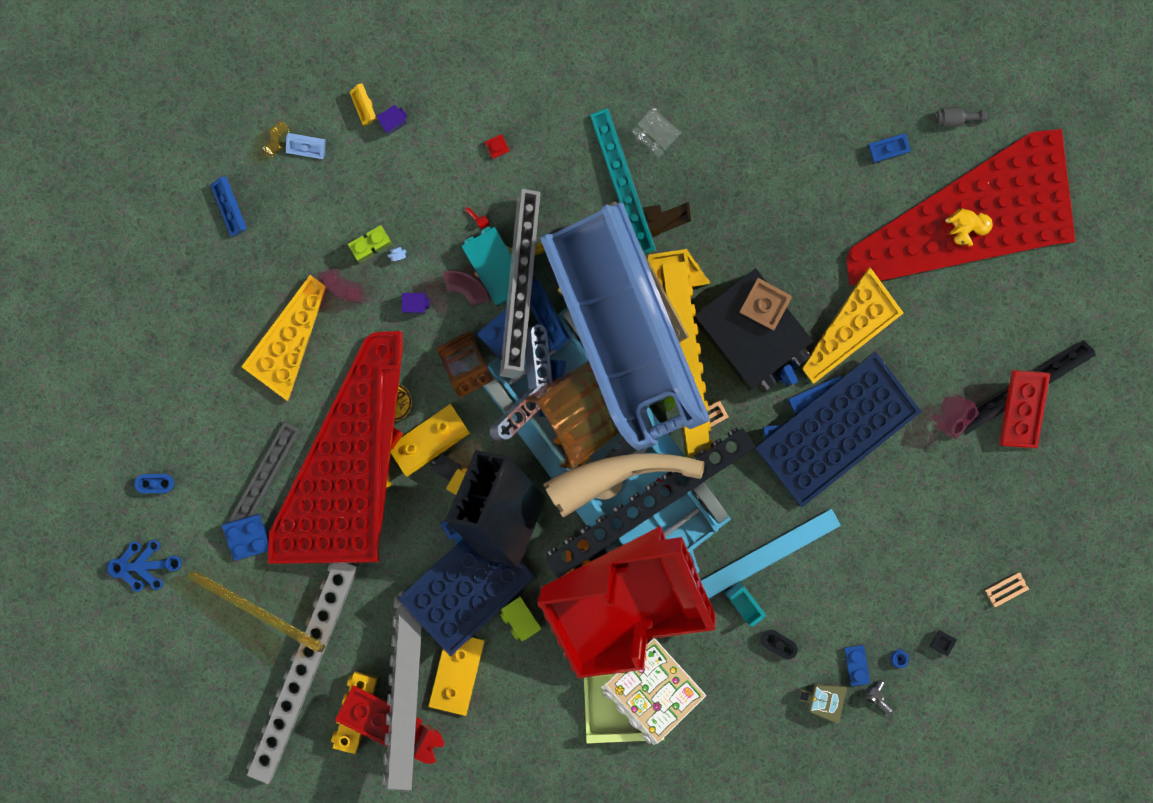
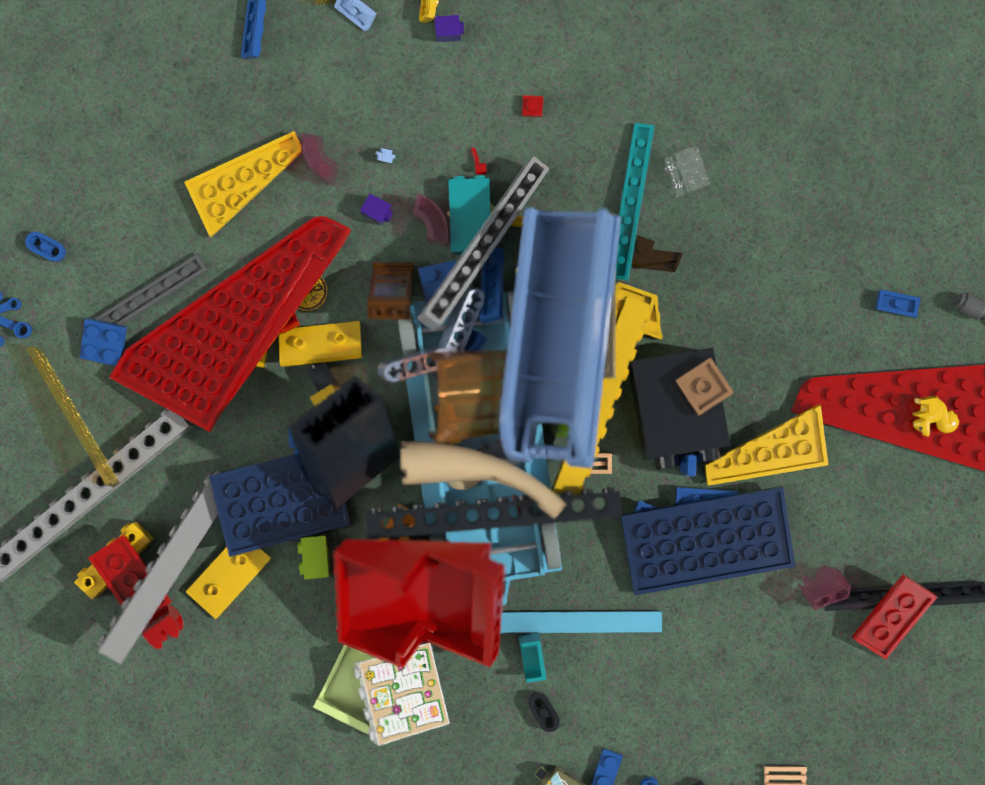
camera: 20 degrees right, 0 degrees up
(376, 239) = (373, 129): lime piece -> none

